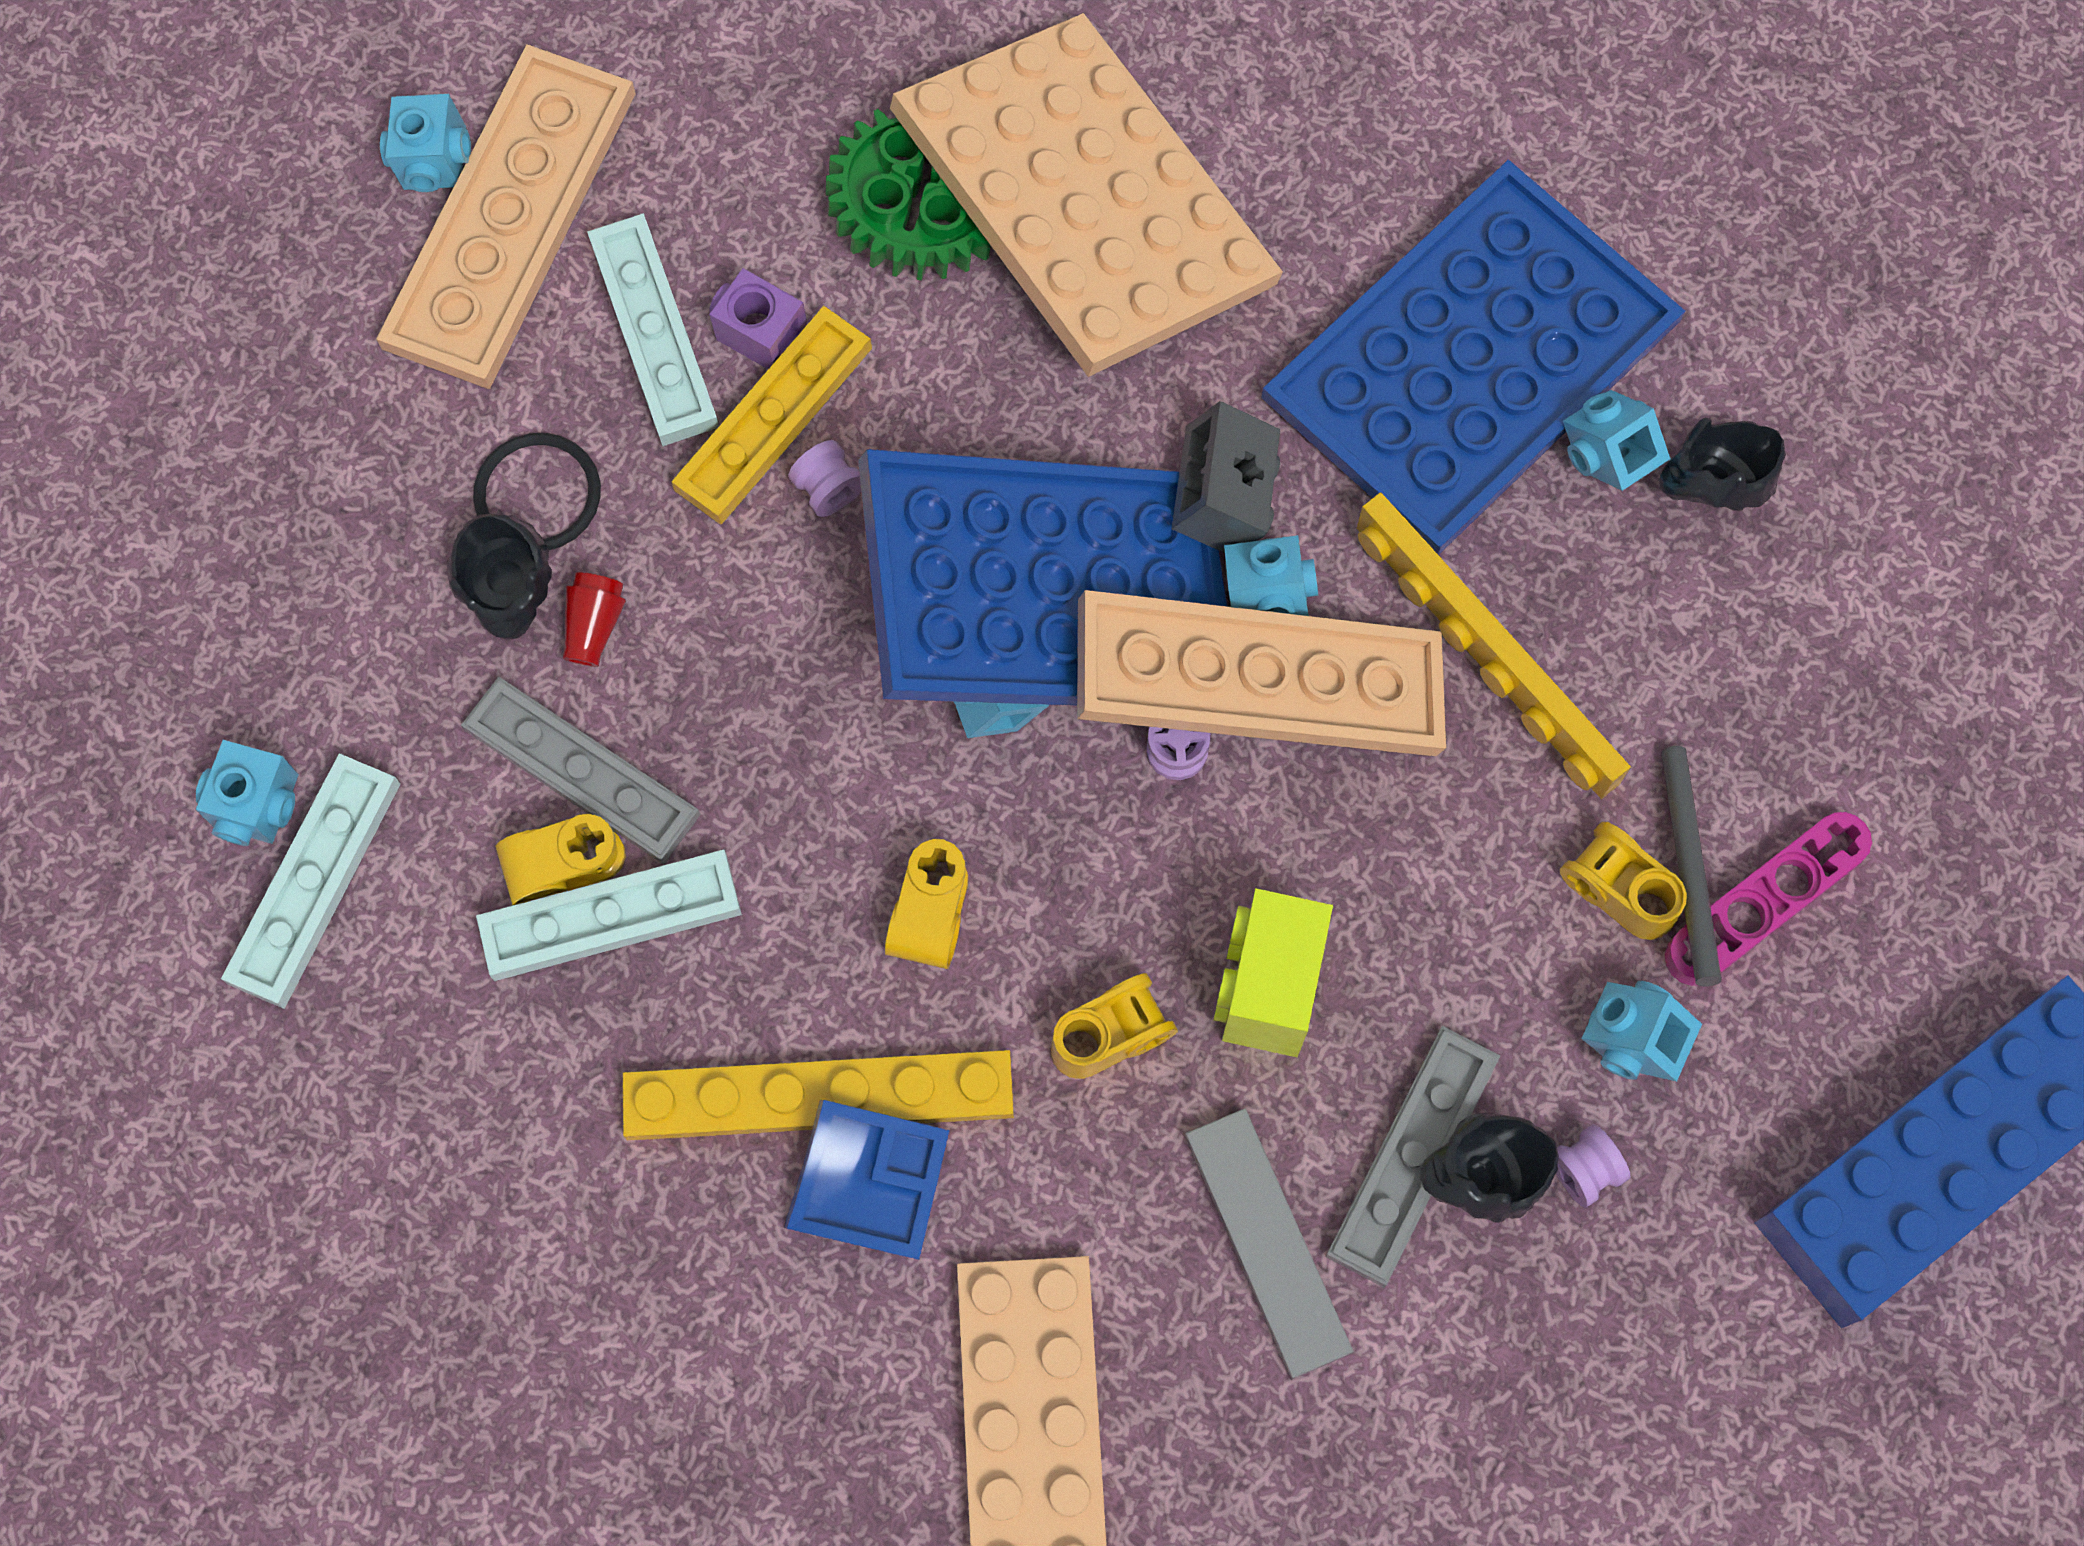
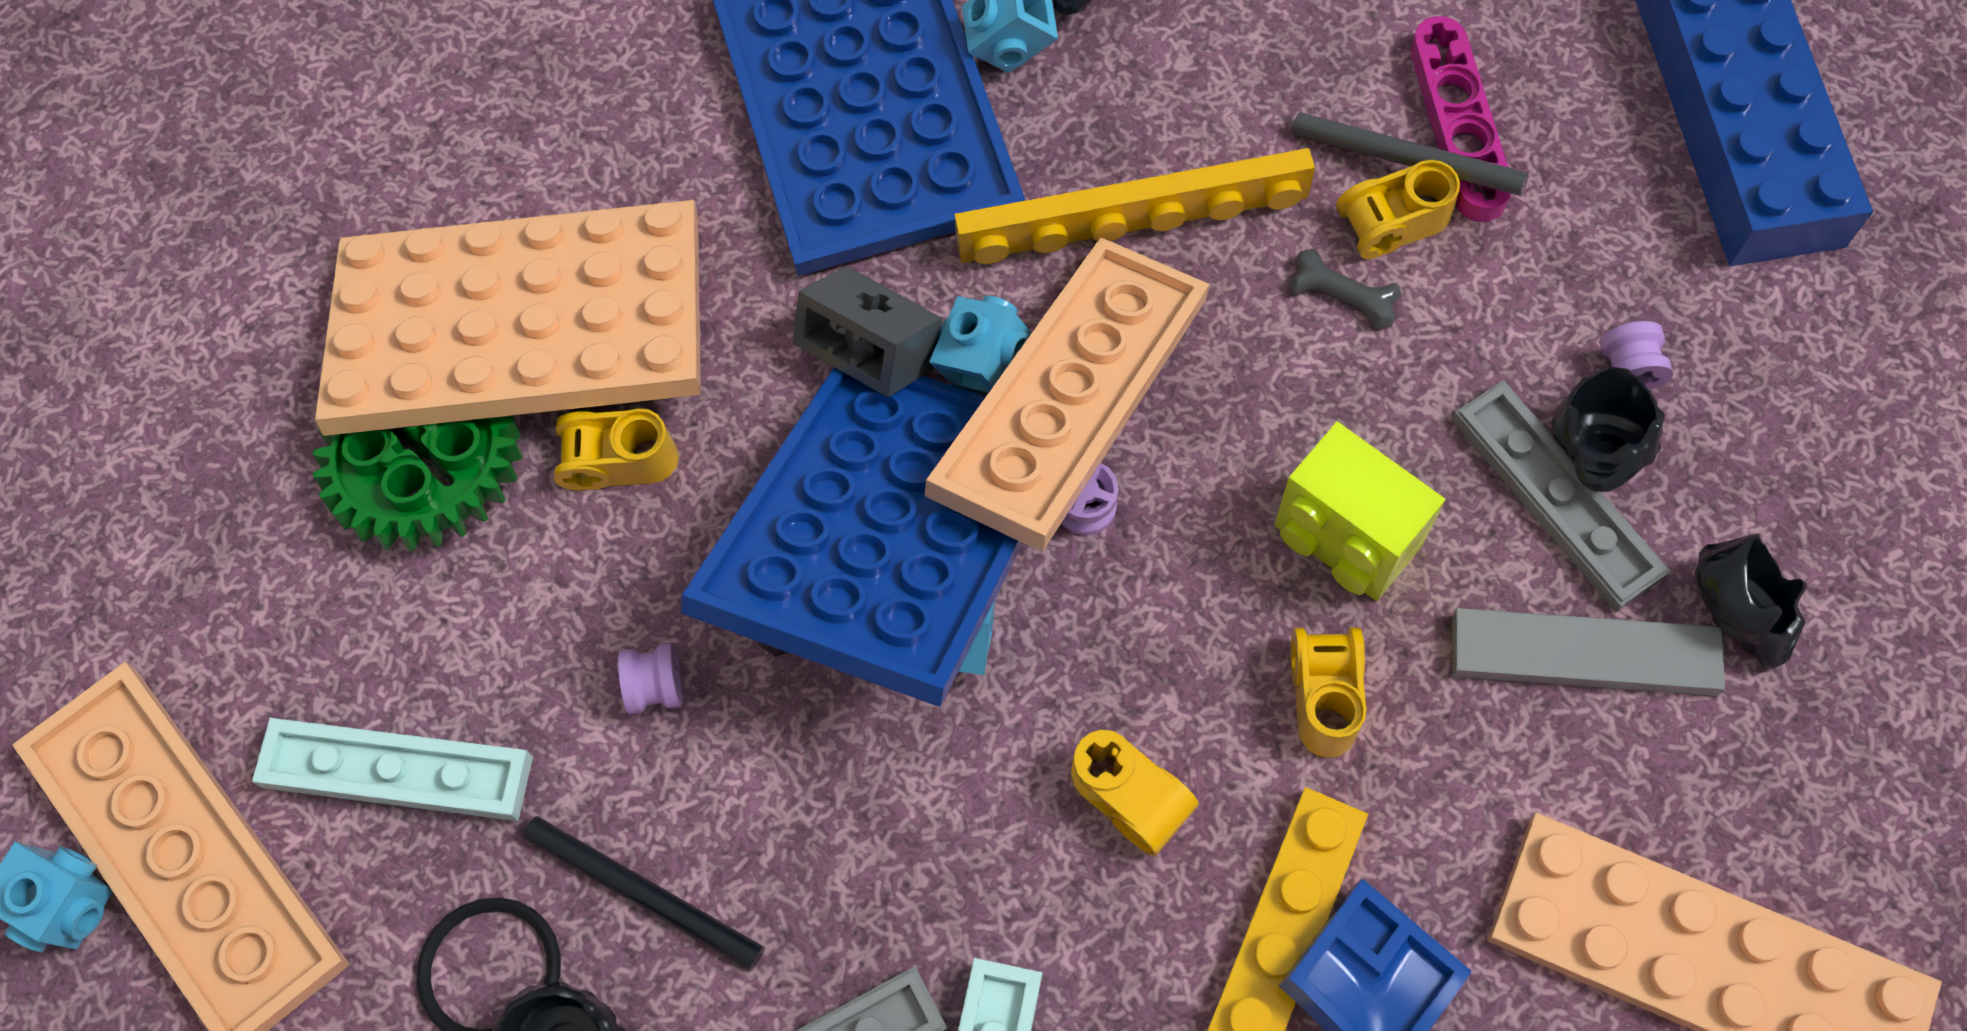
camera: 60 degrees left, 5 degrees down
(590, 616) = (656, 976): red cone -> none
(653, 572) = (644, 893): none -> black bar
(752, 295) = (474, 675): medium lavender brick -> none
(772, 415) = (554, 701): yellow plate -> none
(1008, 330) = (601, 447): none -> yellow piece
(1392, 1366) = (1751, 598): none -> black hair
(1519, 904) = (1372, 301): none -> dark grey piece
(1641, 1031) = (1539, 257): medium azure brick -> none

